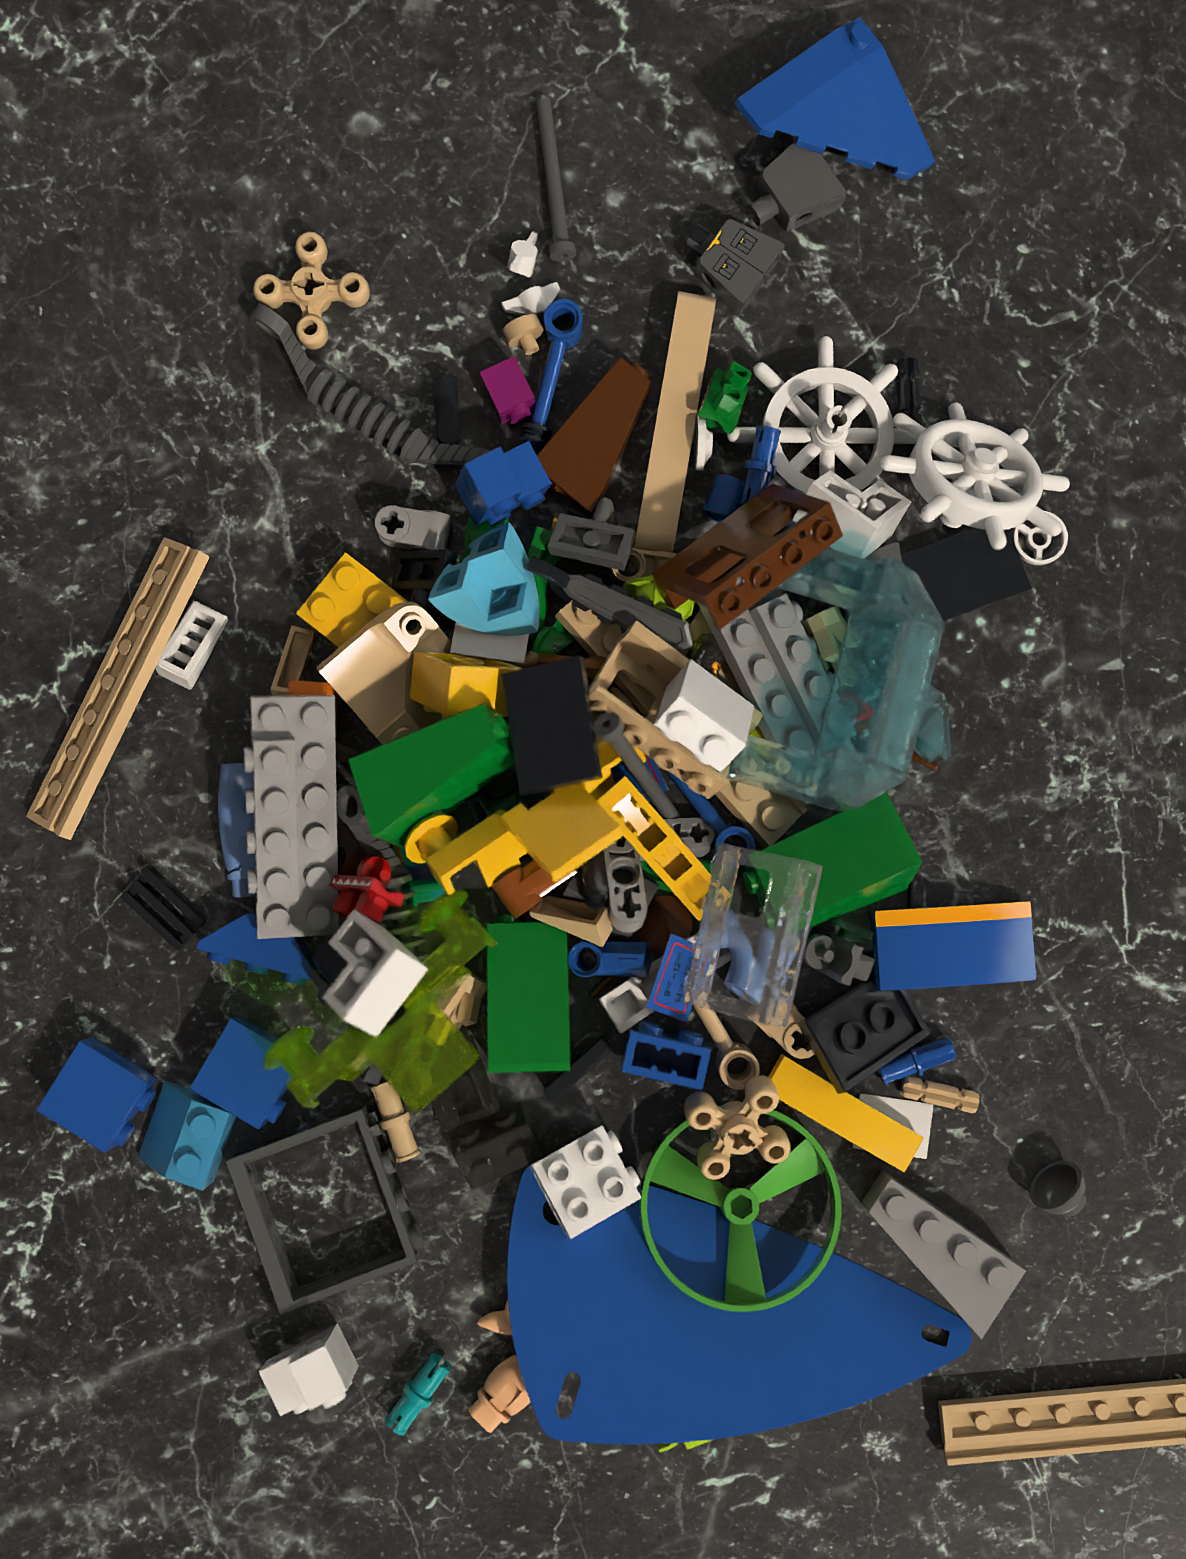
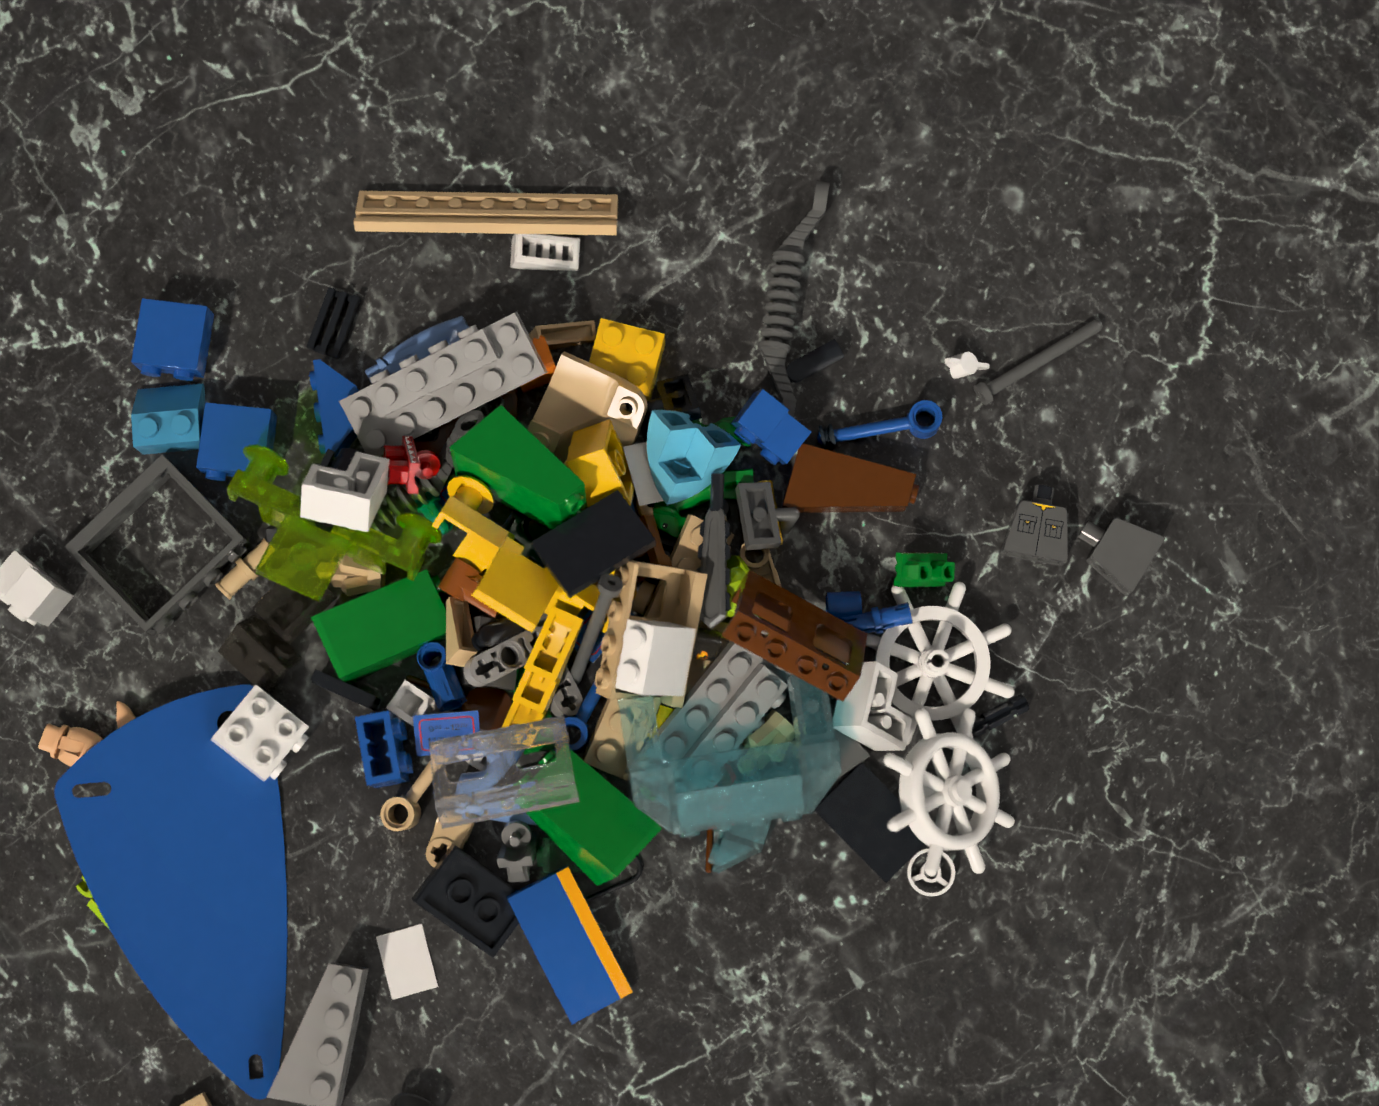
camera: 70 degrees right, 5 degrees down
(303, 280) = (863, 208): tan gear -> none
(418, 1394) = (45, 679): teal pin -> none
(419, 528) = (709, 383): light grey piece -> none
(508, 391) = (850, 401): magenta brick -> none
(524, 332) = (903, 392): tan tile -> none
(532, 301) = (931, 388): white piece -> none
(675, 422) = (883, 540): tan beam -> none
(703, 444) = (878, 569): white piece -> none
(737, 1127) = (351, 831): tan gear -> none
(741, 1206) = (291, 861): bright green piece -> none
(844, 99) = (1205, 555): blue slope -> none
(844, 1114) = (398, 913): yellow slope -> none
(917, 1060) = (466, 956): blue axle -> none
(939, 1094) = (447, 986): tan axle -> none

